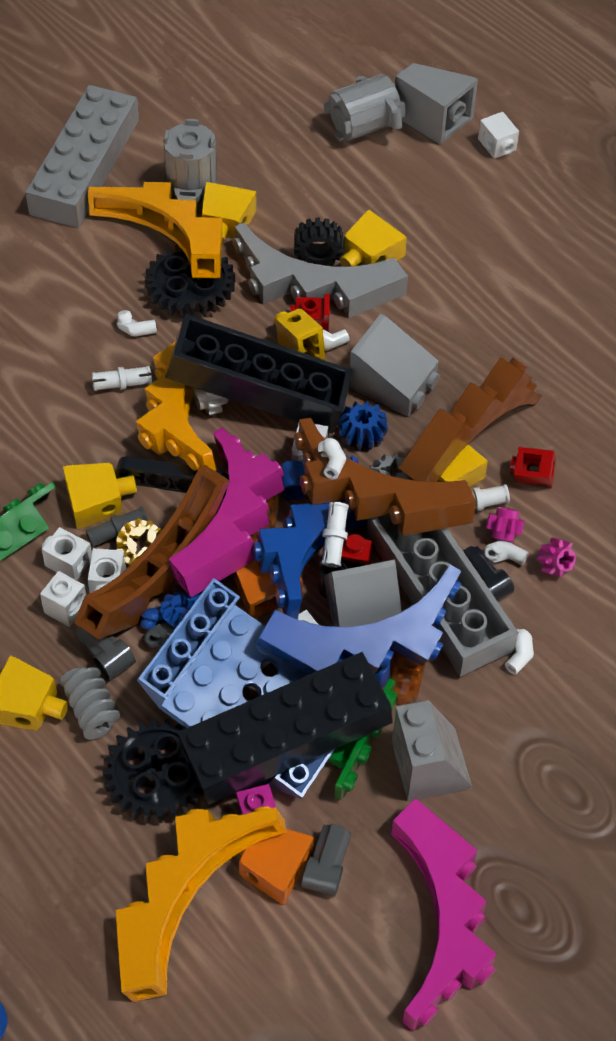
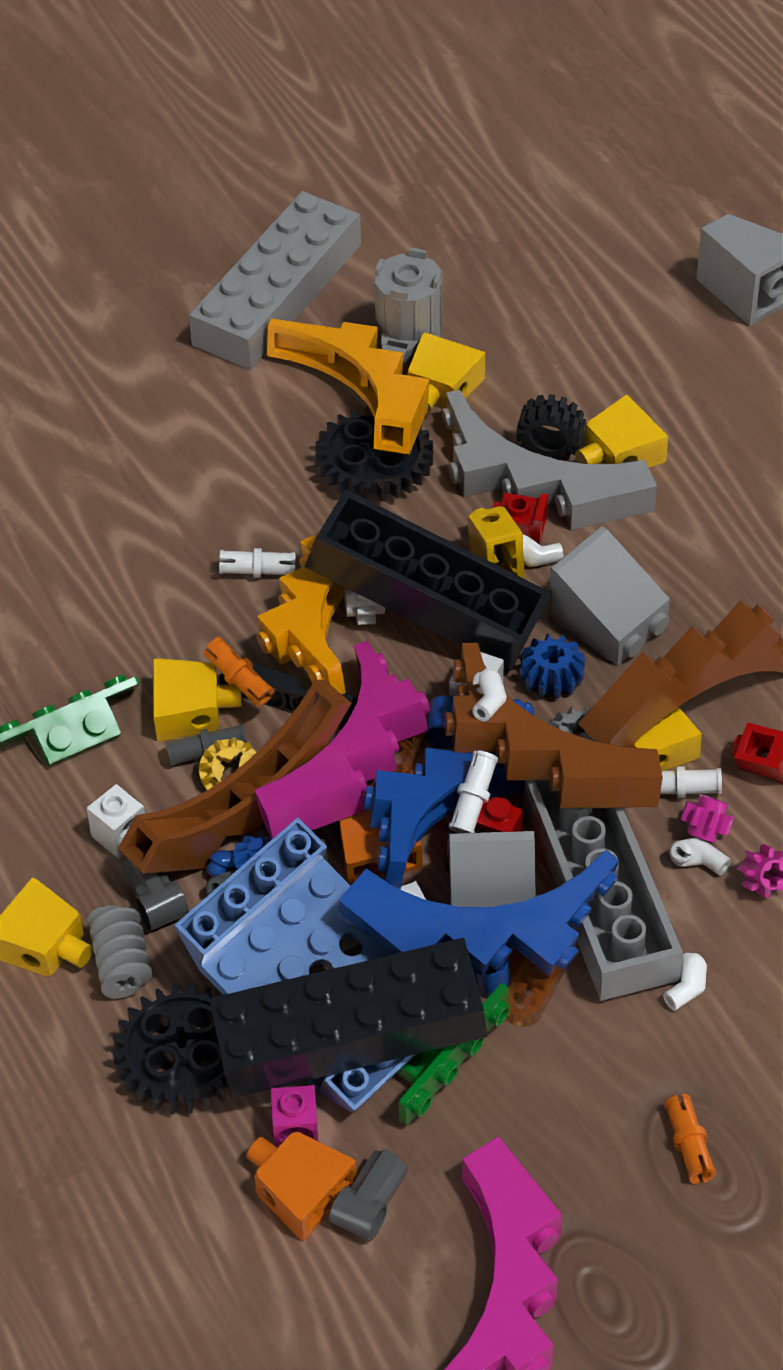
camera: 15 degrees right, 5 degrees down
(75, 561) = (135, 767): white brick -> none
(105, 563) = (177, 786): white brick -> none
(131, 467) = (238, 672): none -> orange pin
(133, 327) = (289, 503): white arm -> none
(148, 929) = (165, 1183): light orange arch -> none
(365, 107) = (655, 264): light grey container -> none
(428, 752) = (532, 1083): light grey slope -> none
(496, 580) = (674, 888): black piece -> none
(552, 772) = (690, 1139): none -> orange pin

